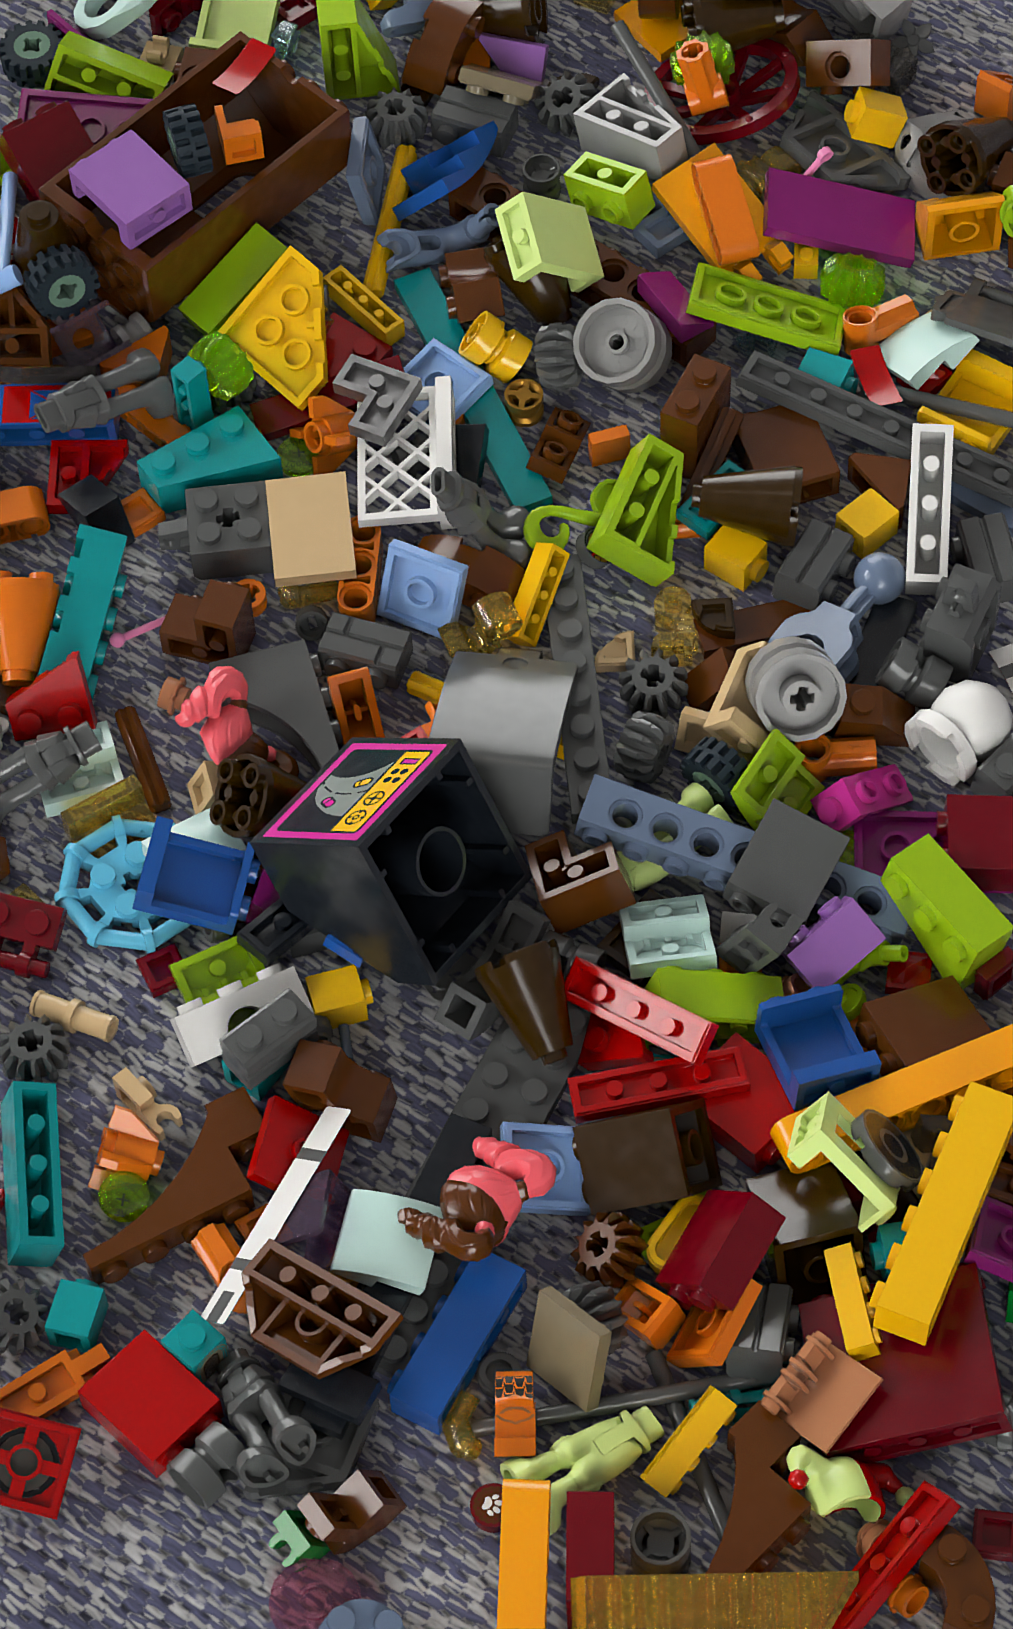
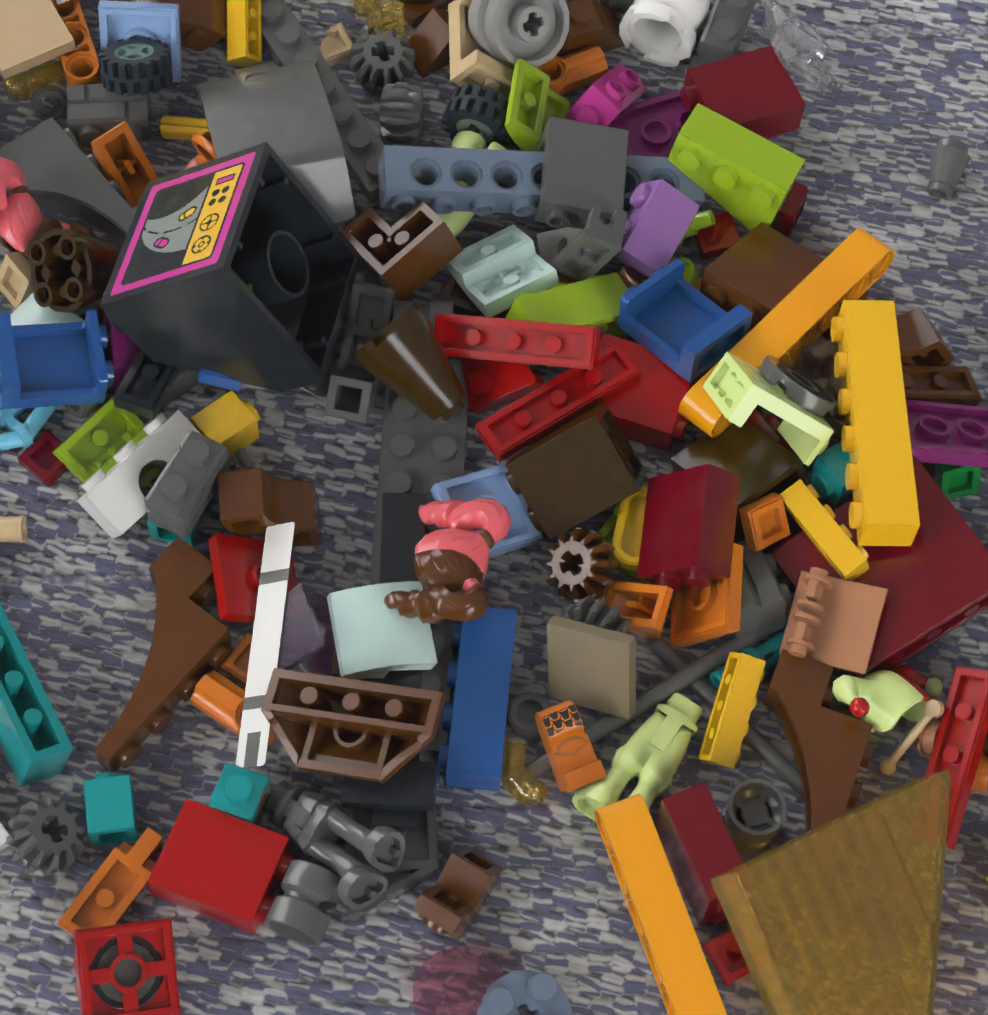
camera: 30 degrees left, 5 degrees up
(124, 1196) = (105, 680): clear neon green piece -> none
(127, 1149) = (92, 639): orange brick -> none
(139, 1097) = (81, 584): tan plate -> none
(295, 1533) = (416, 934): tile -> none
(403, 615) = (135, 66): none -> black wheel
(486, 1507) = (580, 839): tile -> none
(494, 621) = (218, 48): clear yellow leg -> none
(691, 729) = (436, 88): tan tile -> none
(800, 1271) = (764, 521): none -> orange tile
(879, 1512) = (933, 709): none -> tan hinge

